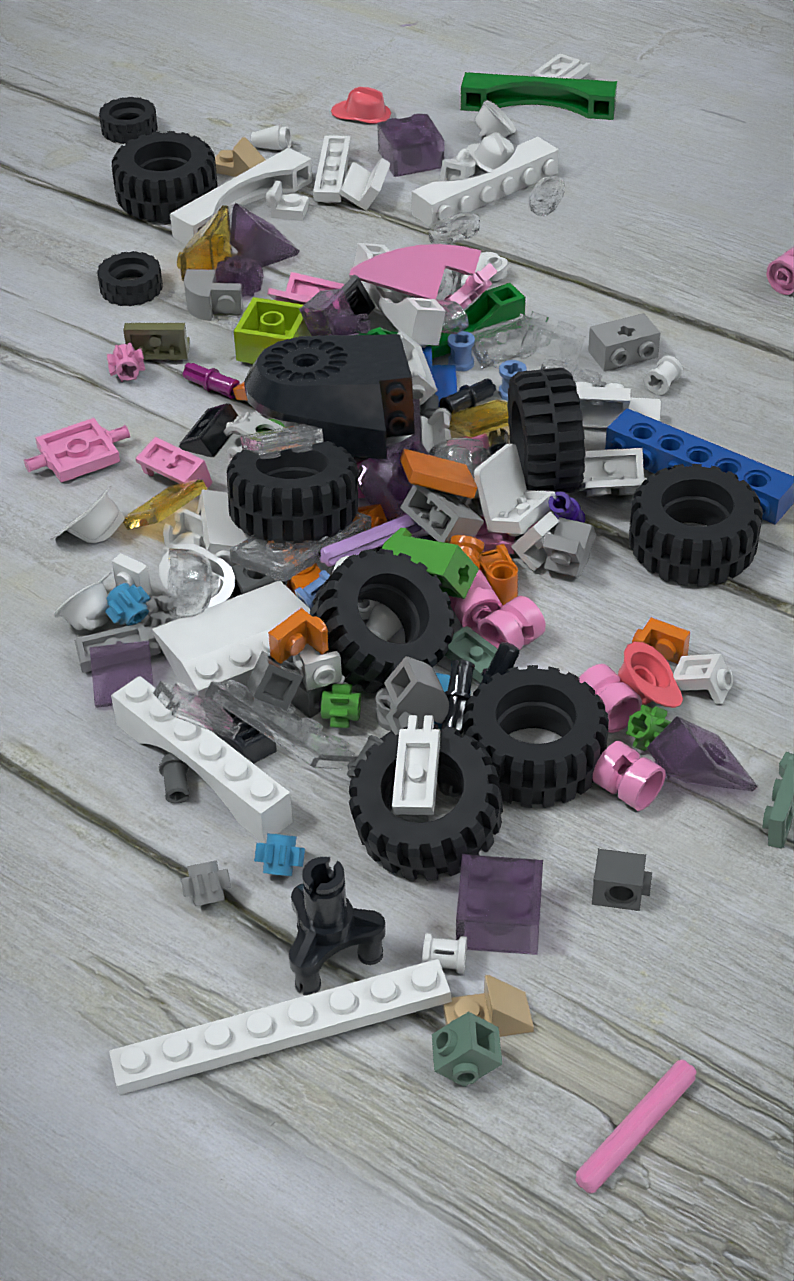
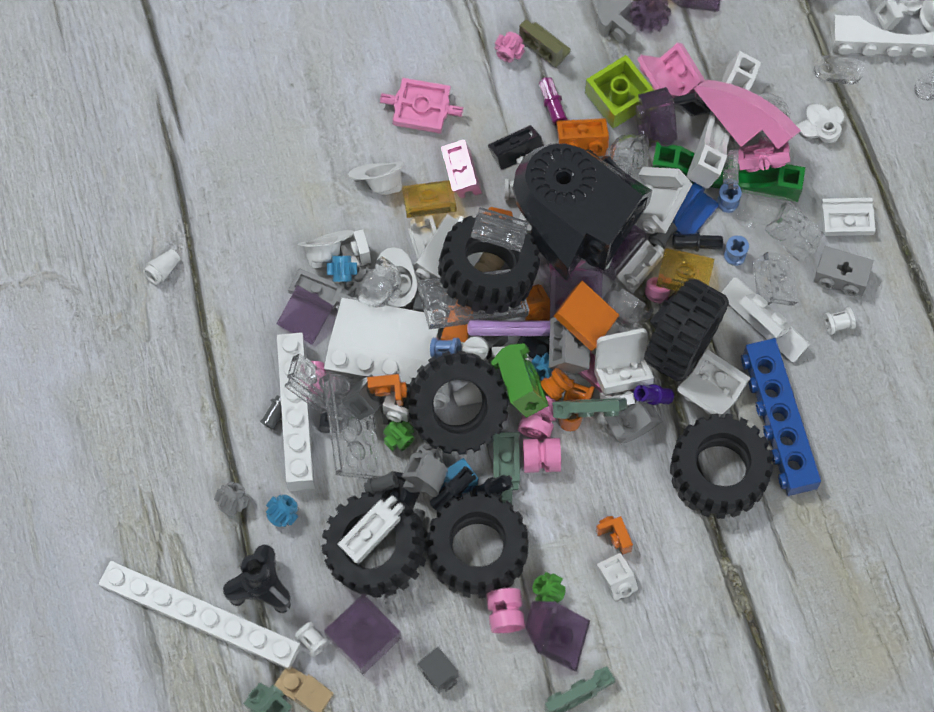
camera: 40 degrees right, 25 degrees up
(520, 543) = (587, 407): none -> sand green hinge
(582, 308) = (848, 216): none -> white plate
(617, 696) = (545, 553): bright pink wheel -> none
(649, 675) = (581, 557): coral piece -> none

